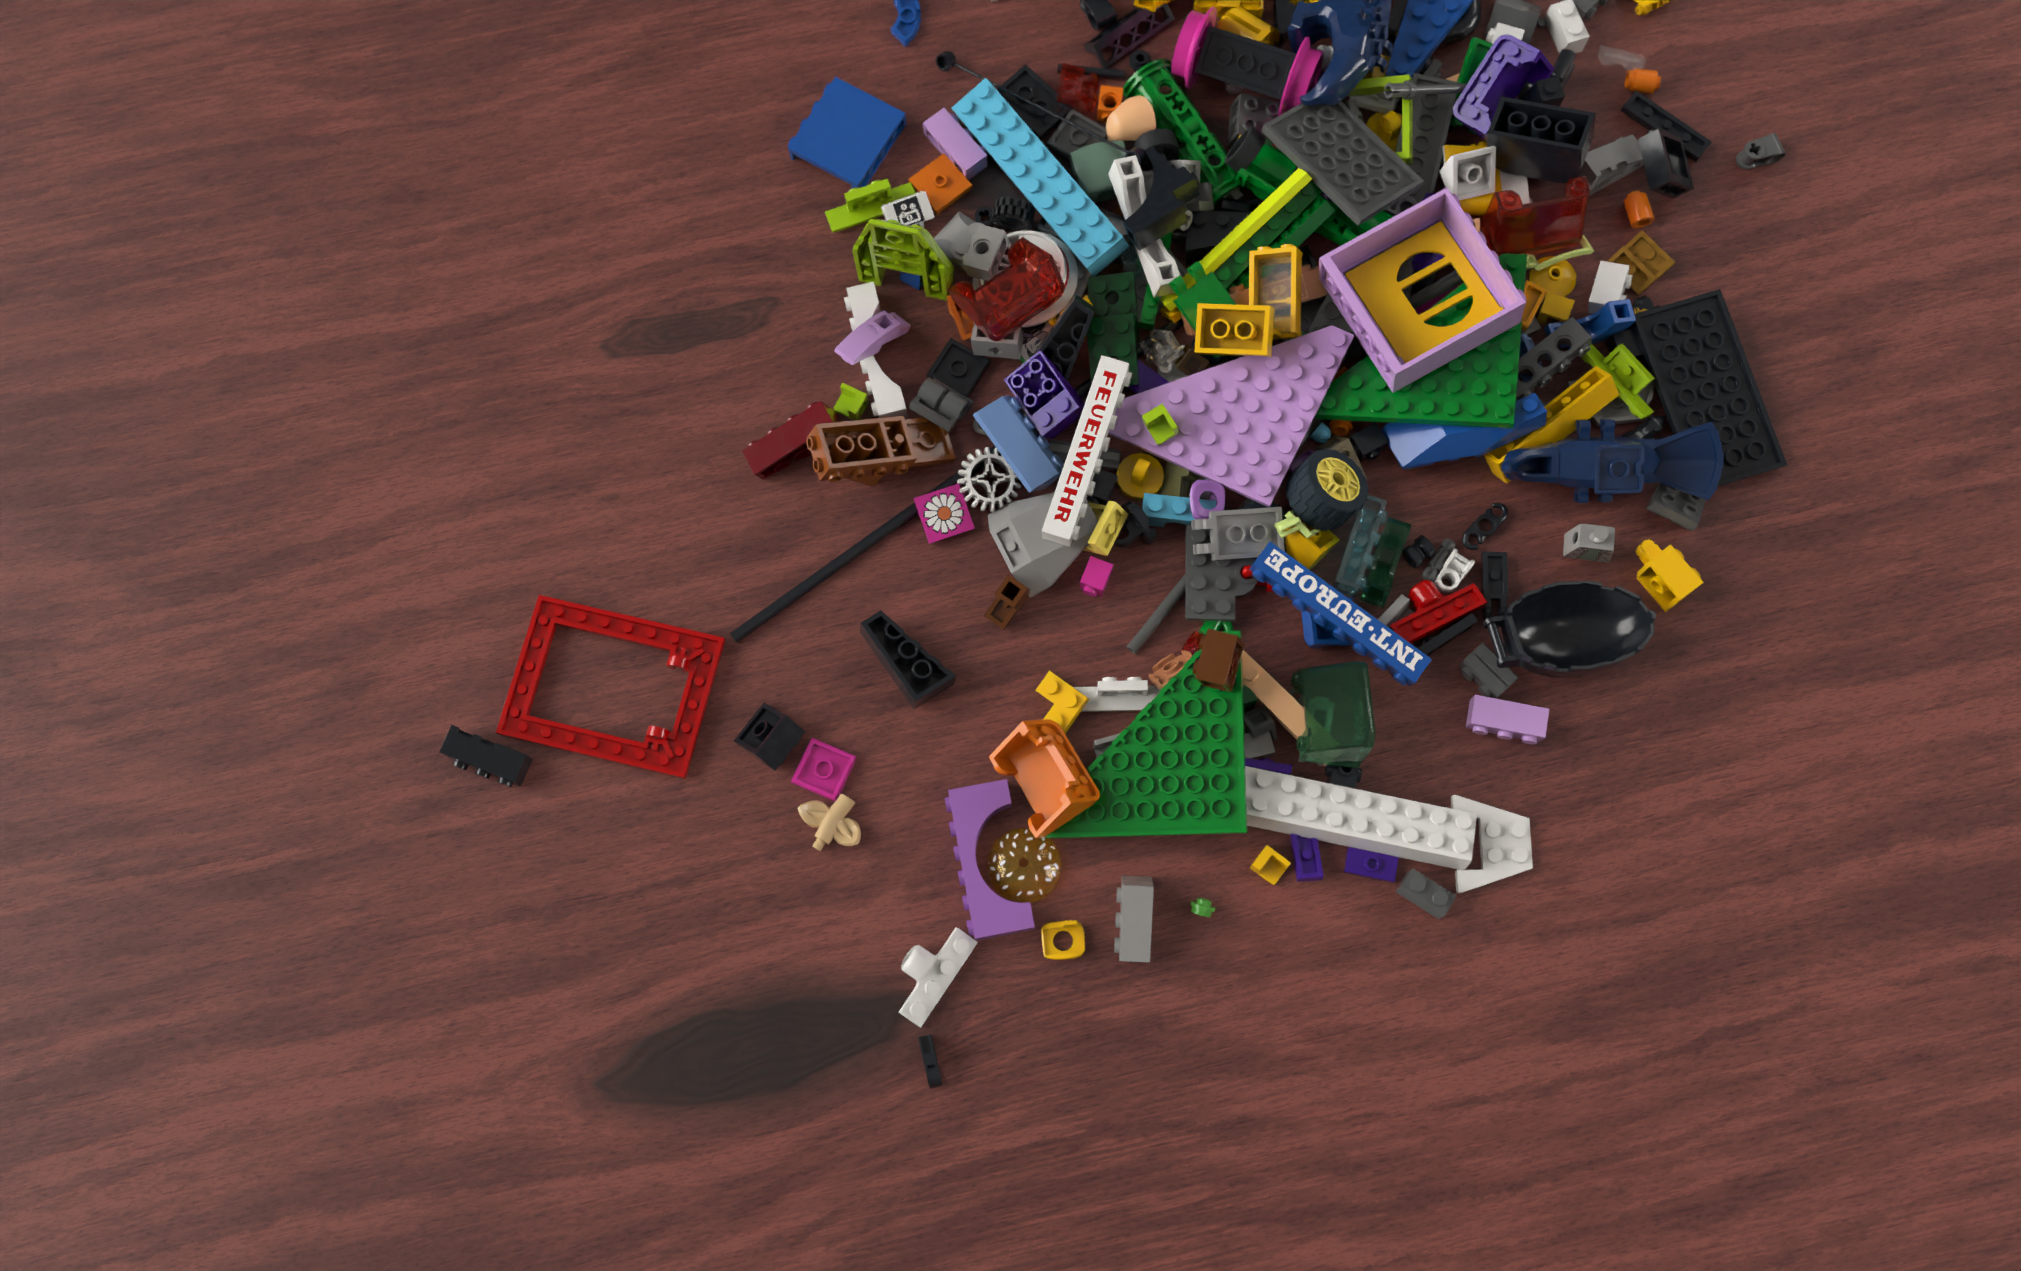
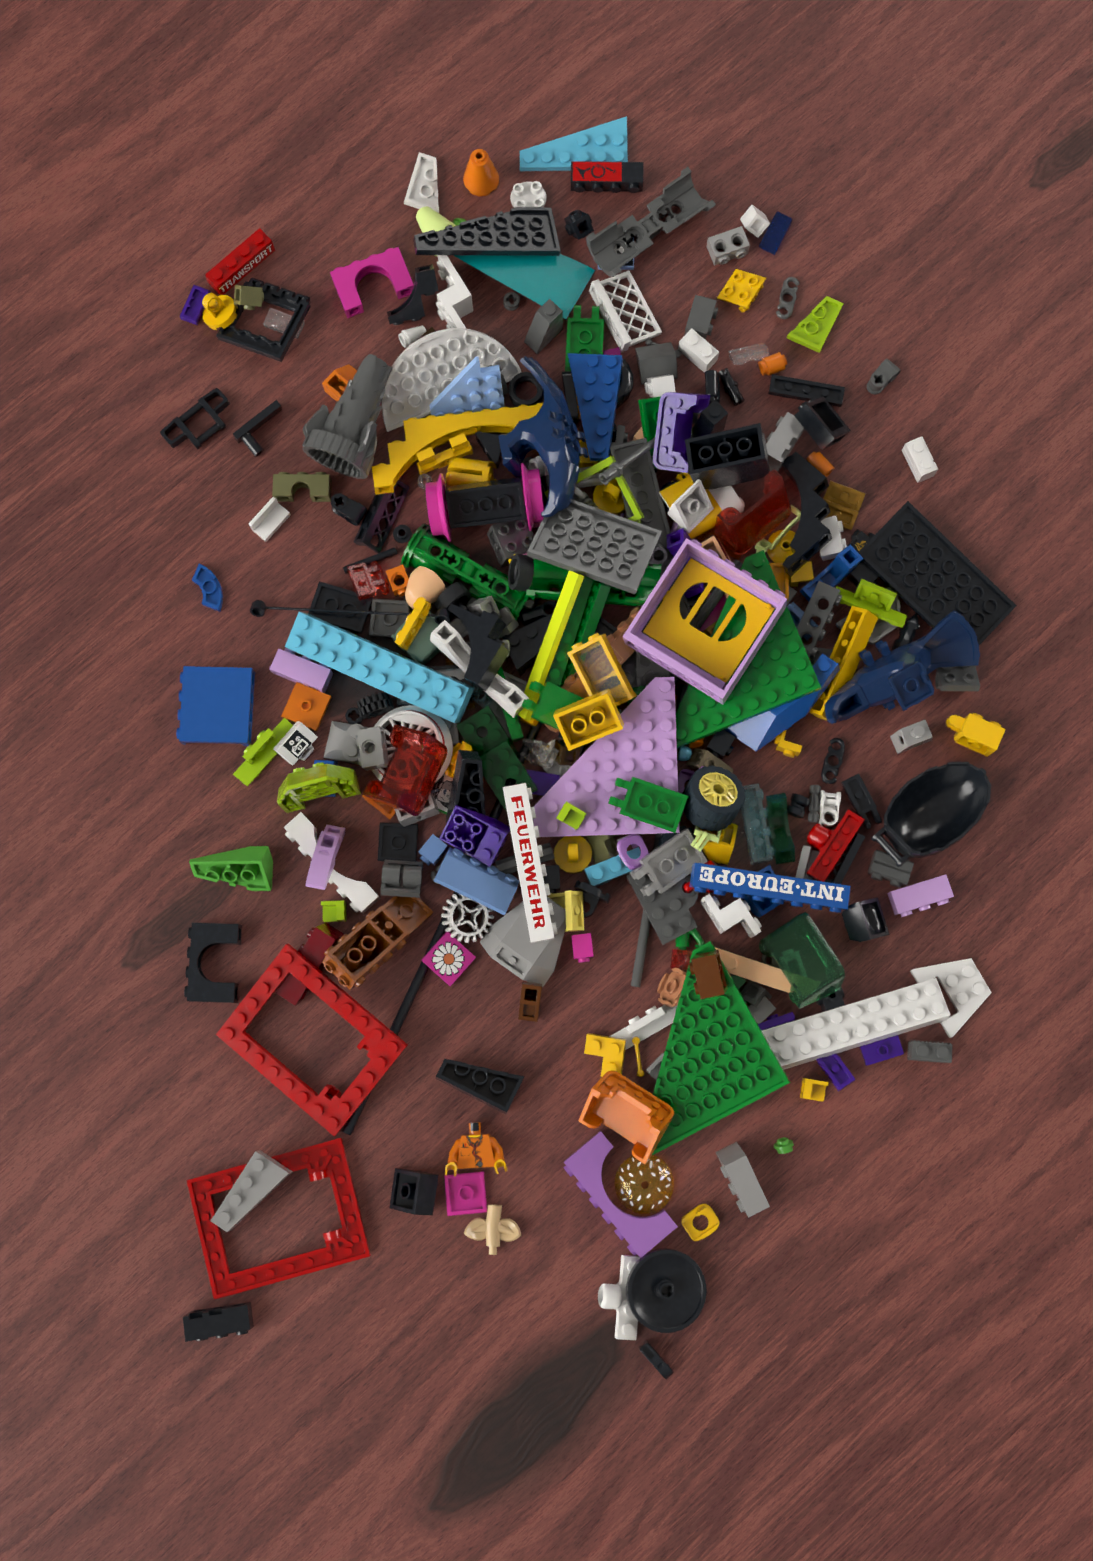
camera: 30 degrees left, 5 degrees up
(596, 636) = (251, 1188): none -> light grey wedge
(698, 359) = (202, 938): none -> black arch
(781, 309) = (243, 866): none -> bright green wedge
(820, 553) = (378, 1040): none -> red plate
(858, 729) = (475, 1151): none -> orange torso
(983, 990) = (666, 1290): none -> black dish
(989, 391) = (433, 850): none -> medium blue brick
(1099, 706) = (635, 1040): none -> yellow hinge
(1100, 147) = (413, 623): none -> yellow hinge
(1253, 454) = (650, 803): none -> green tile
(1279, 626) = (731, 915): none -> white bracket
(1429, 709) = (865, 920): none -> black brick
(1440, 484) = (788, 748): none -> yellow bracket
(1582, 83) = (731, 386): none -> black pin
(1592, 266) = (811, 533): none -> black arch
(1699, 14) = (789, 306): none -> dark grey piece
(1714, 66) = (817, 325): none -> lime wing
(1757, 257) = (919, 459): none -> white brick

